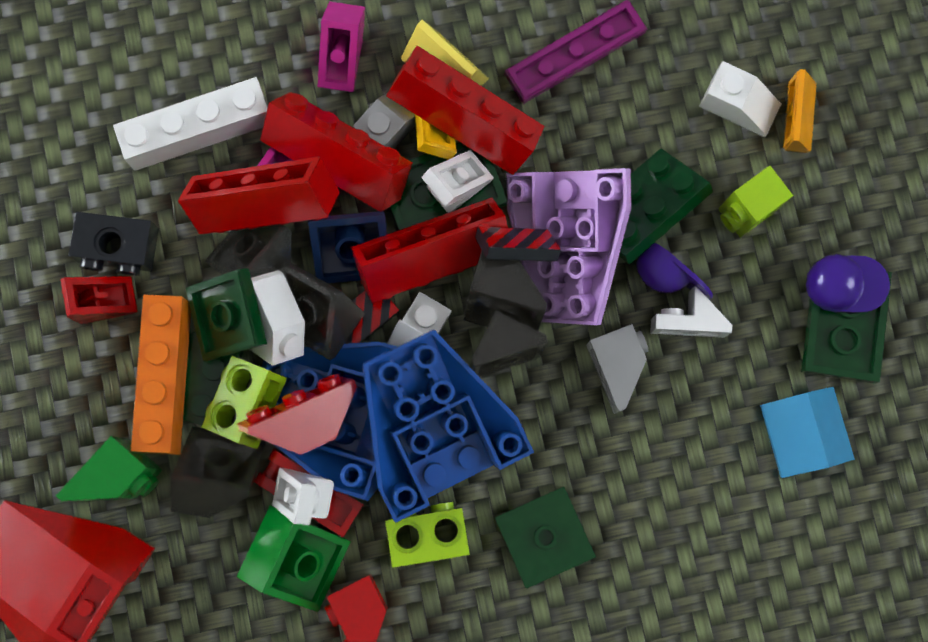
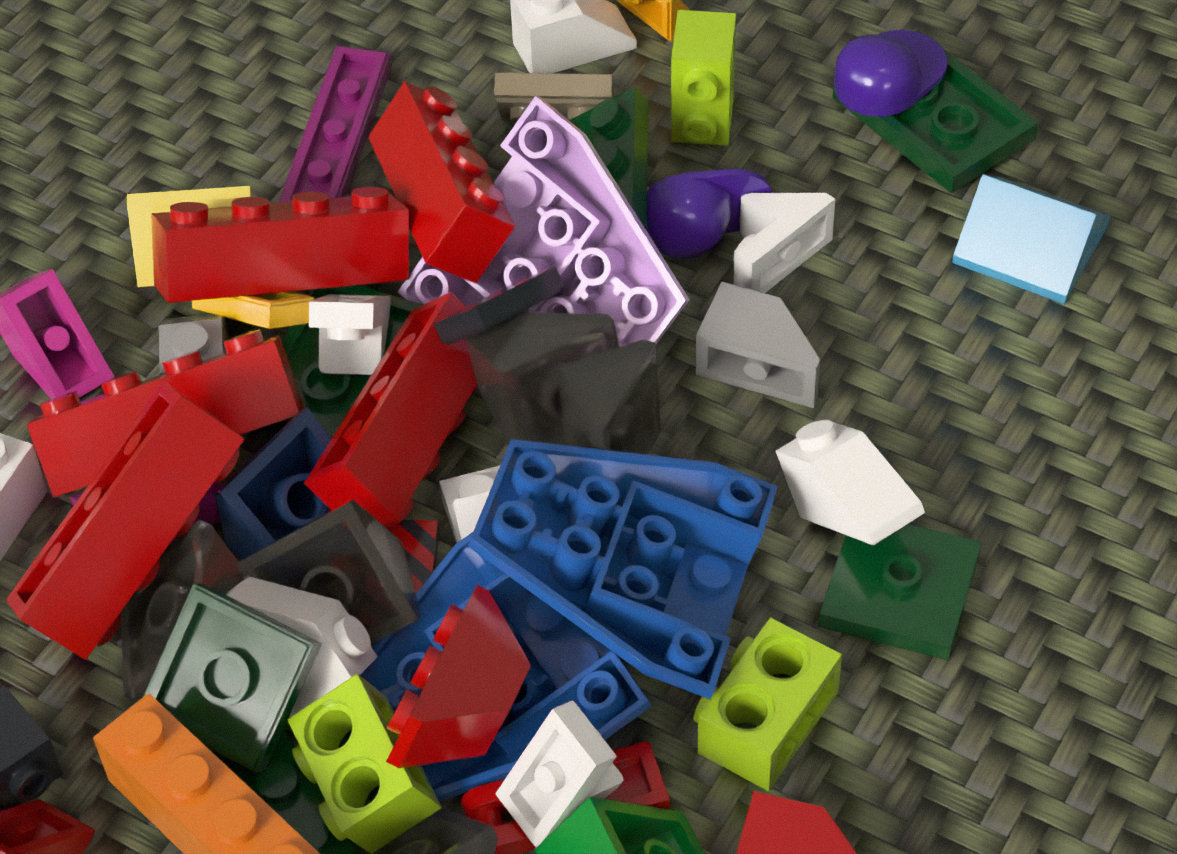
camera: 40 degrees left, 30 degrees down
(565, 481) = (846, 483): none -> white slope
(572, 142) = (442, 182): none -> red brick
(683, 138) = (564, 92): none -> dark tan plate

